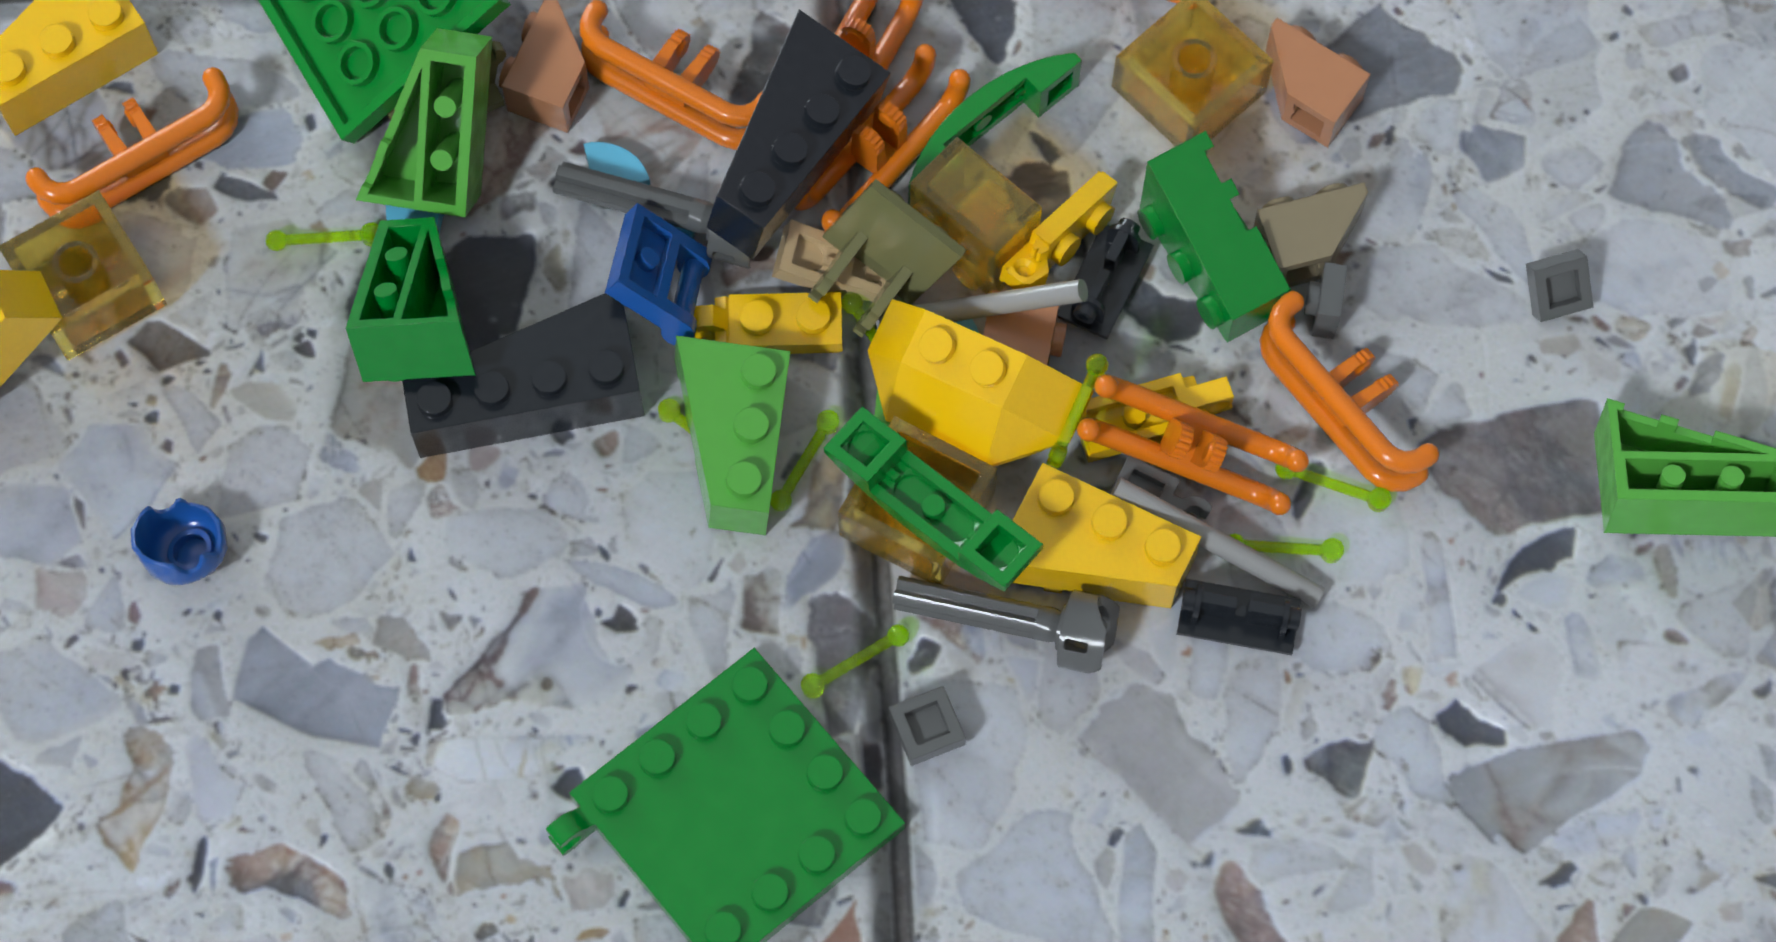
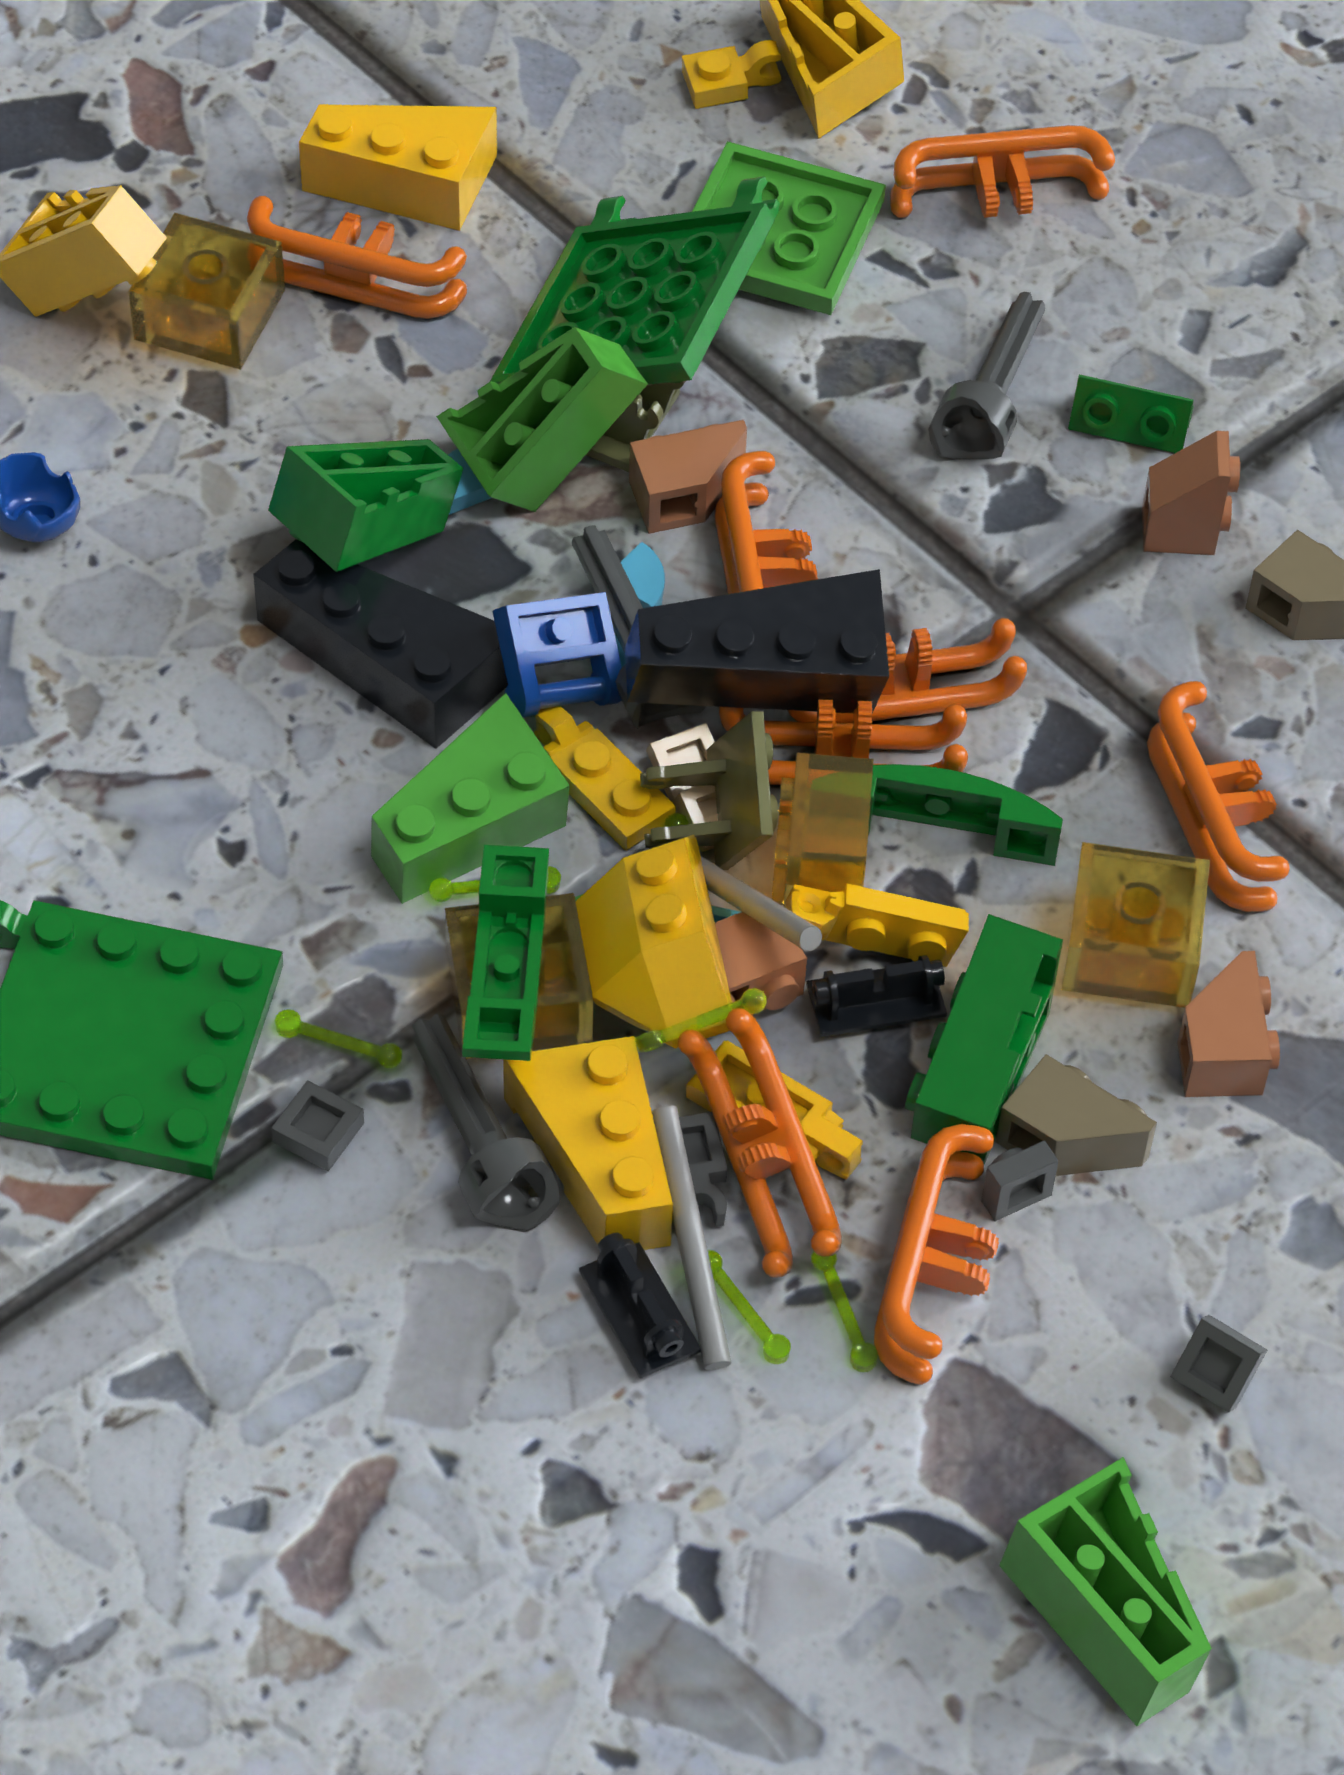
camera: 50 degrees right, 15 degrees down
(277, 240) = (364, 403): clear neon green hinge -> none

